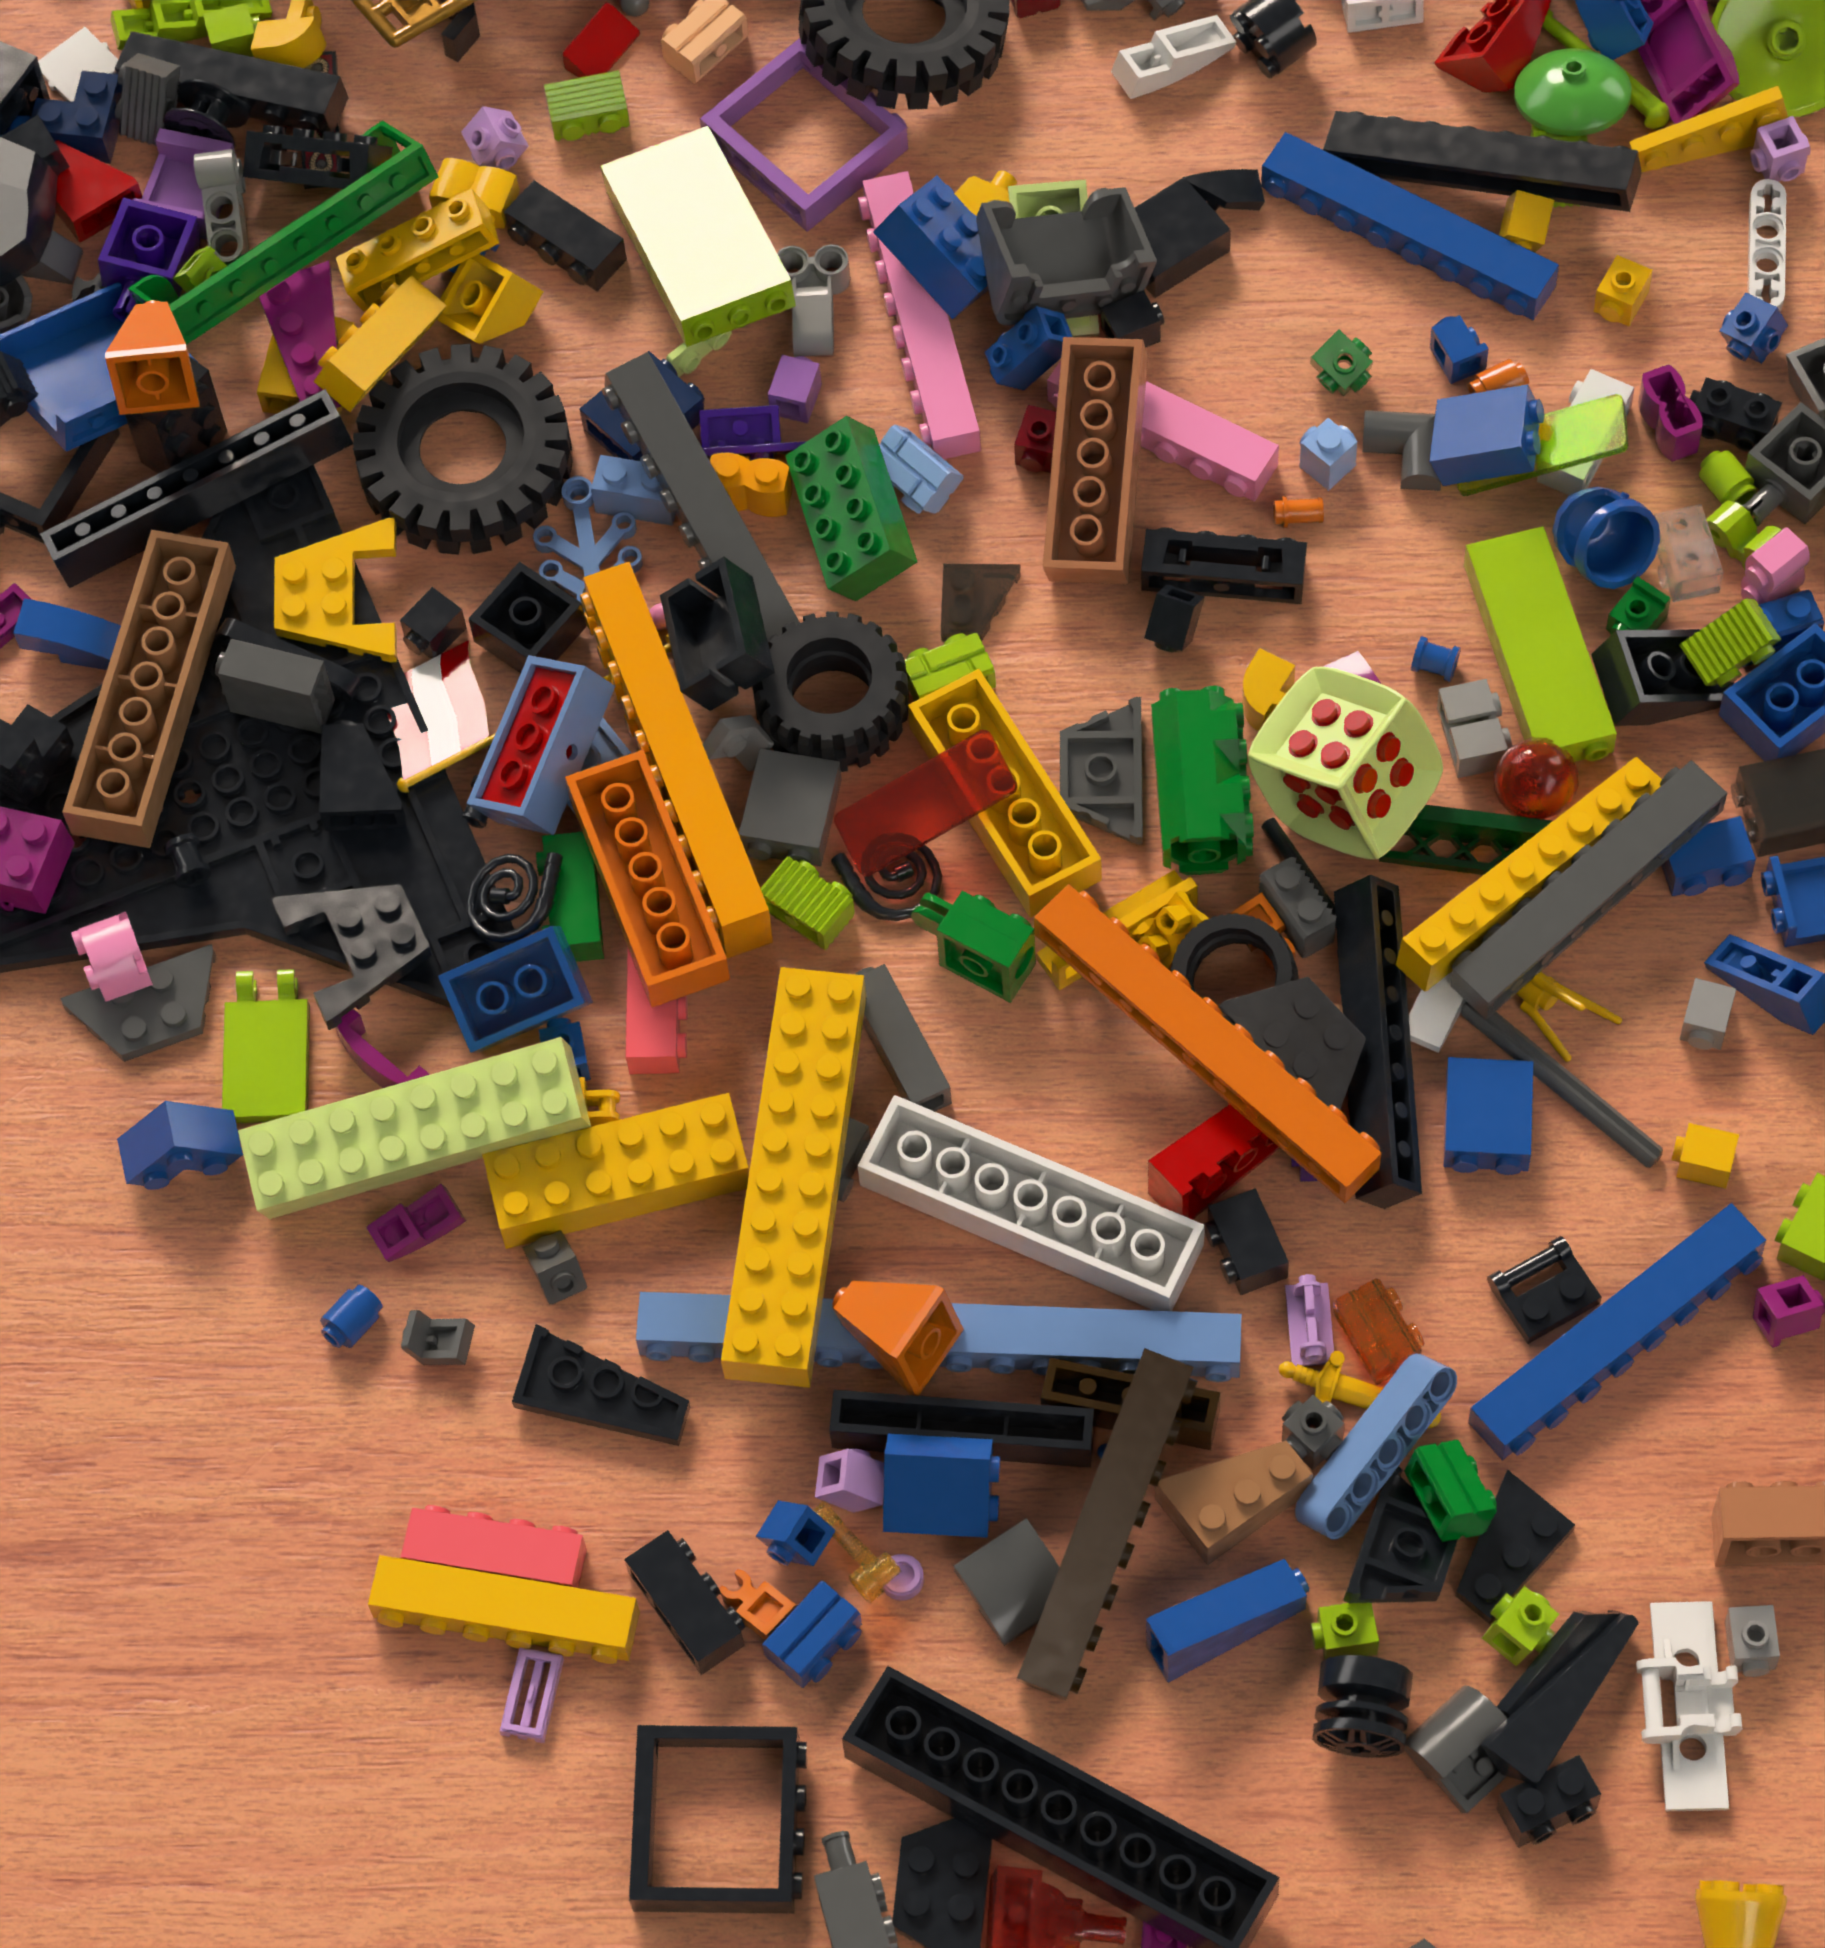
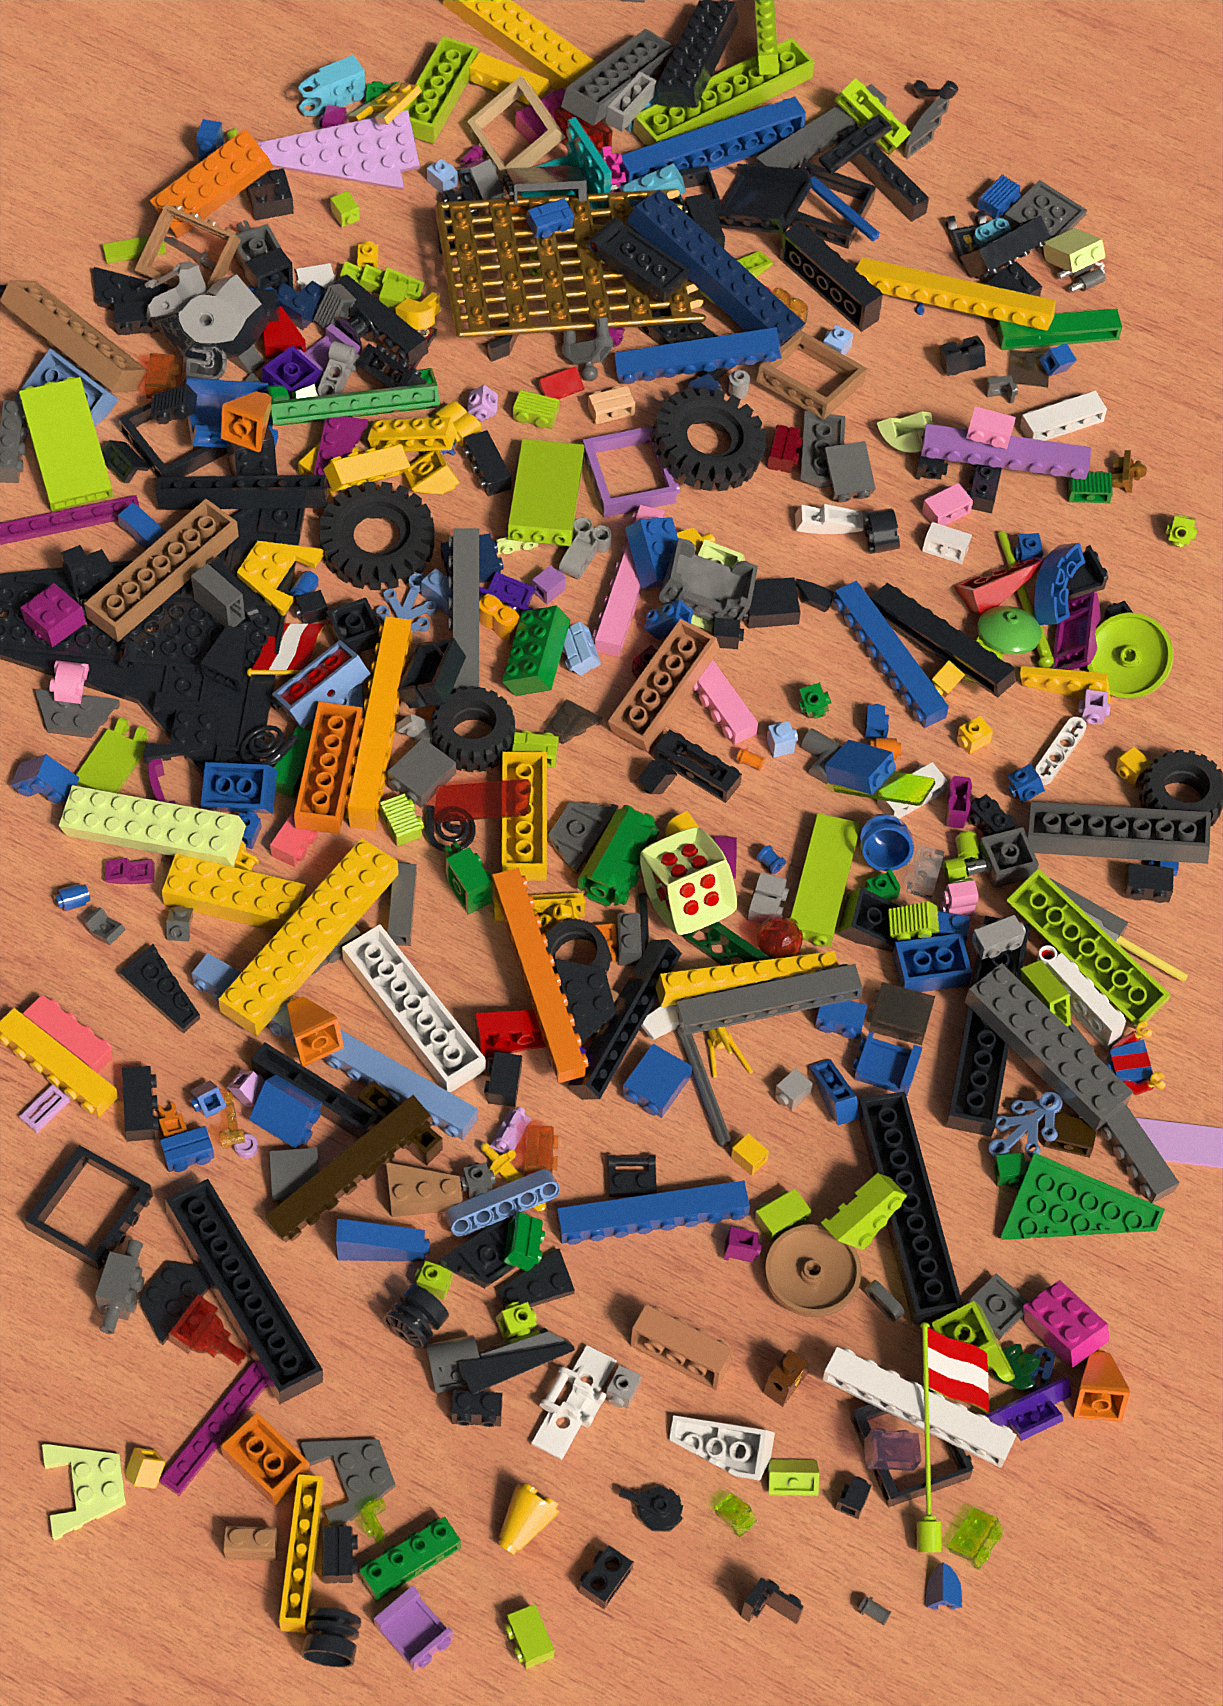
camera: 20 degrees right, 5 degrees down
(396, 593) = (306, 583): none -> blue brick

